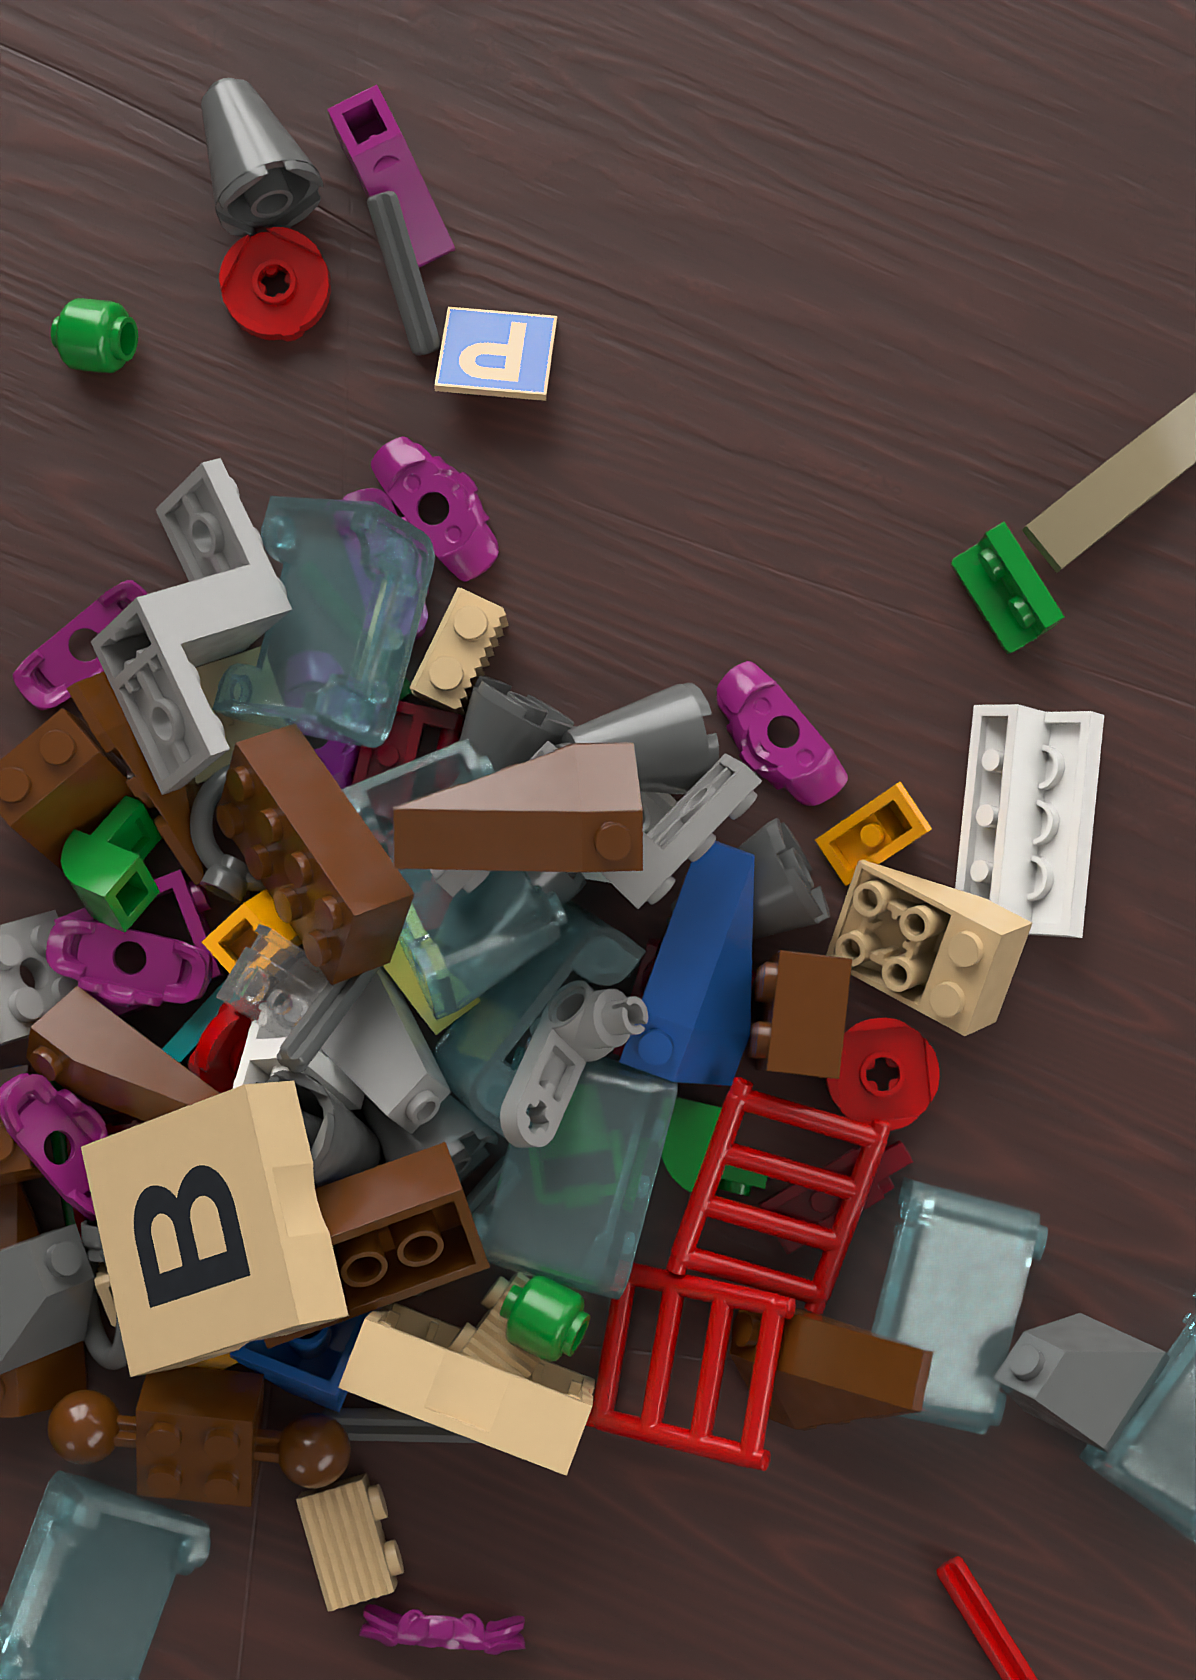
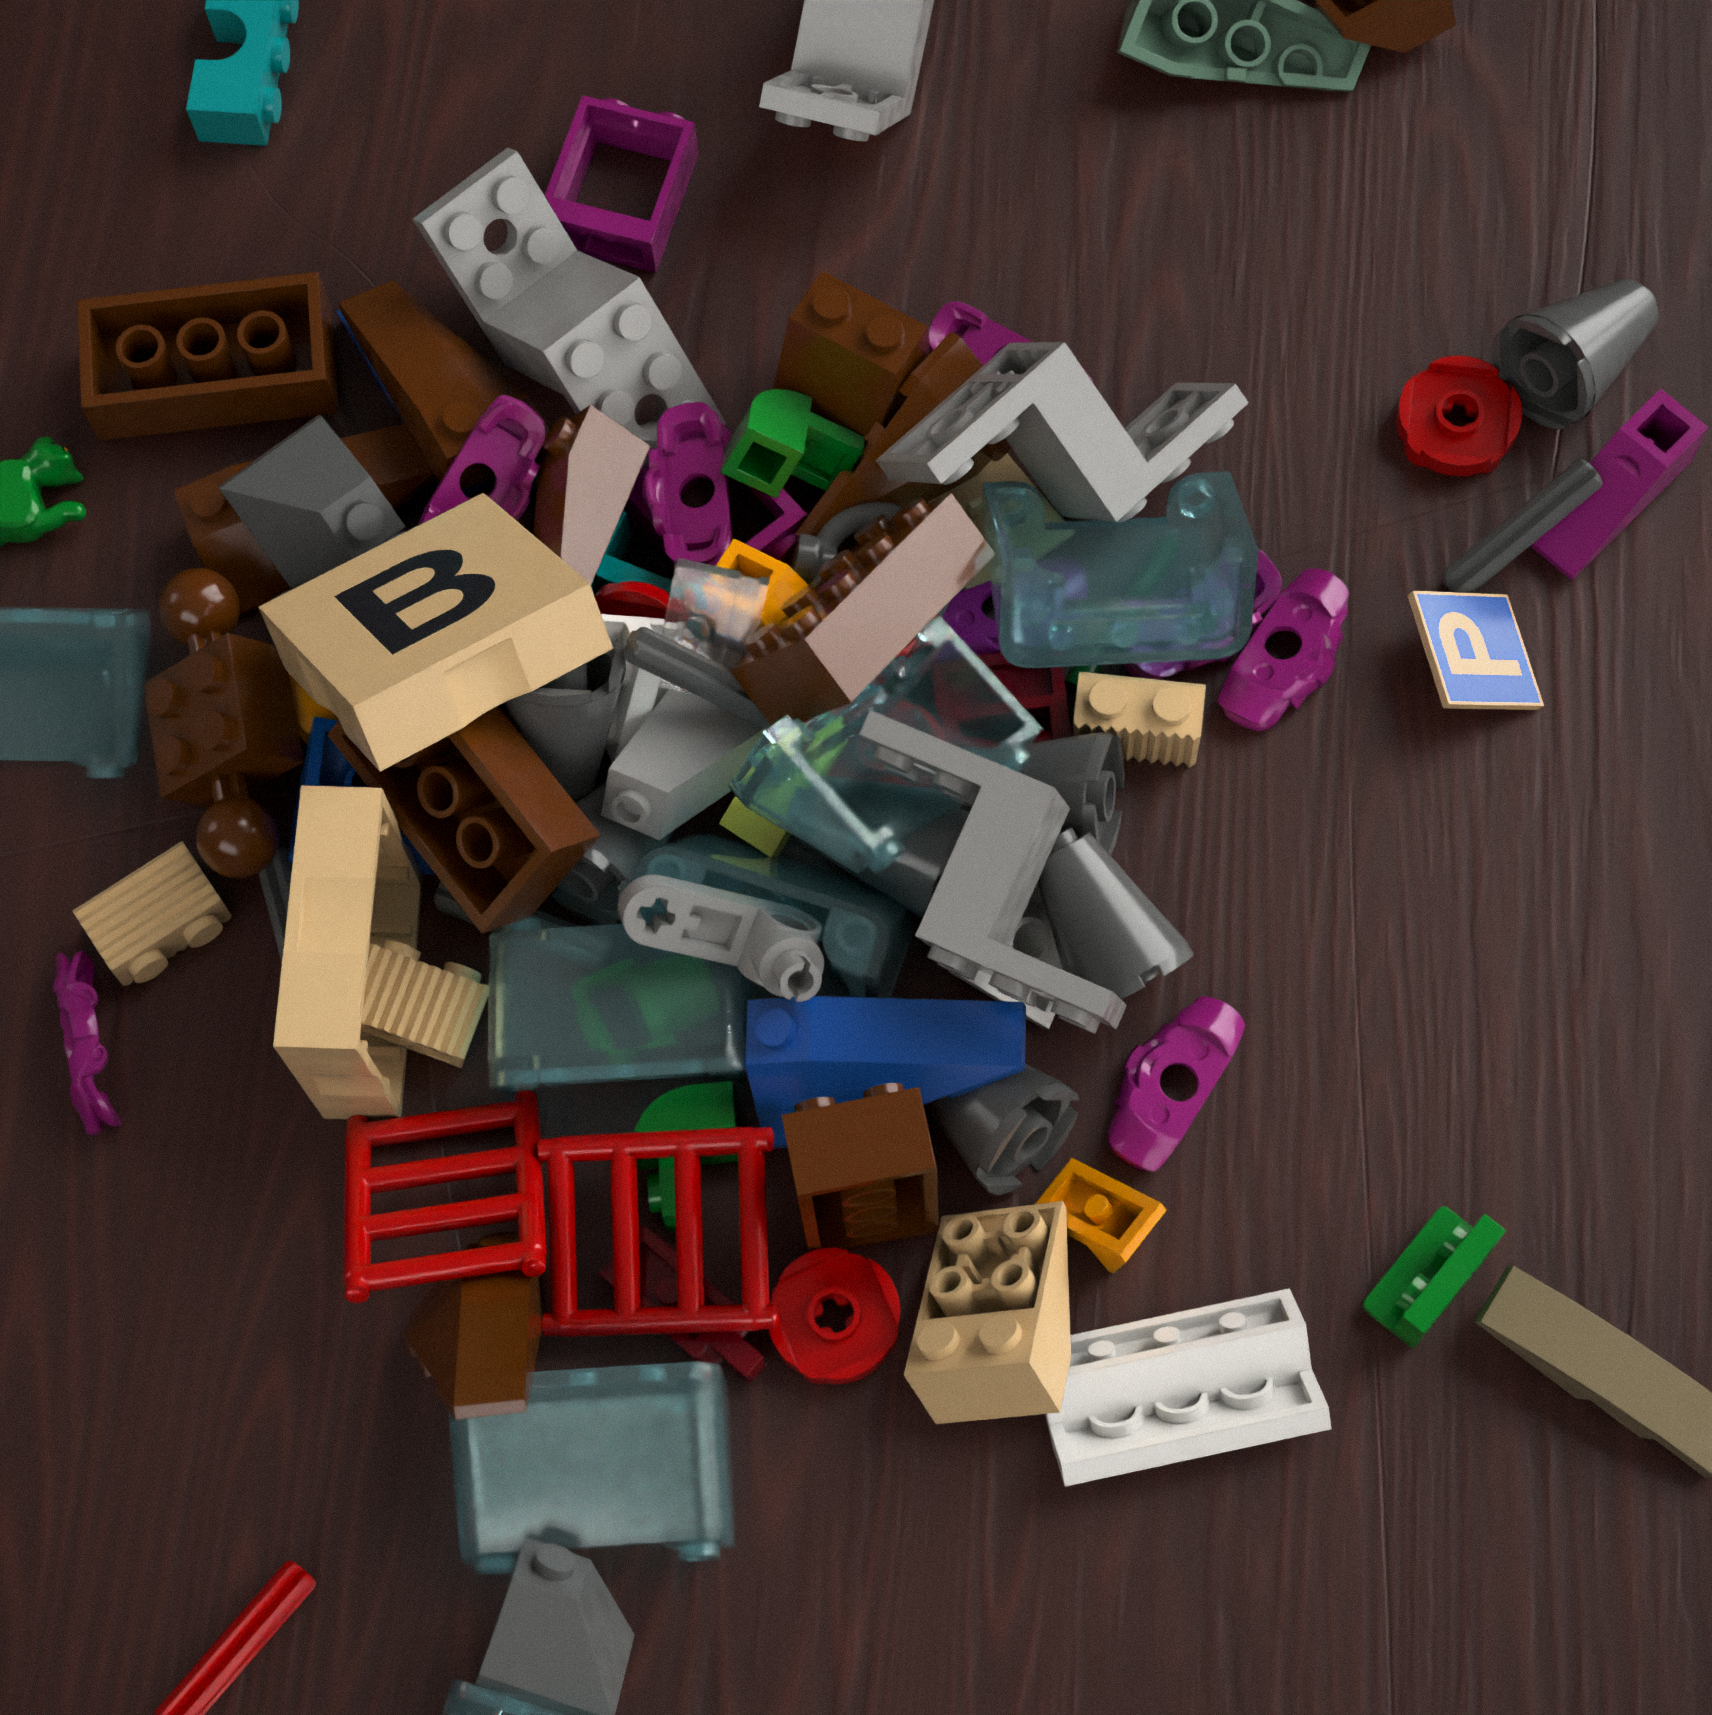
camera: 70 degrees right, 15 degrees down
(94, 335) = (1331, 263): green head -> none
(541, 815) = (977, 786): reddish brown wedge -> none
(545, 1318) = (445, 1018): green head -> none

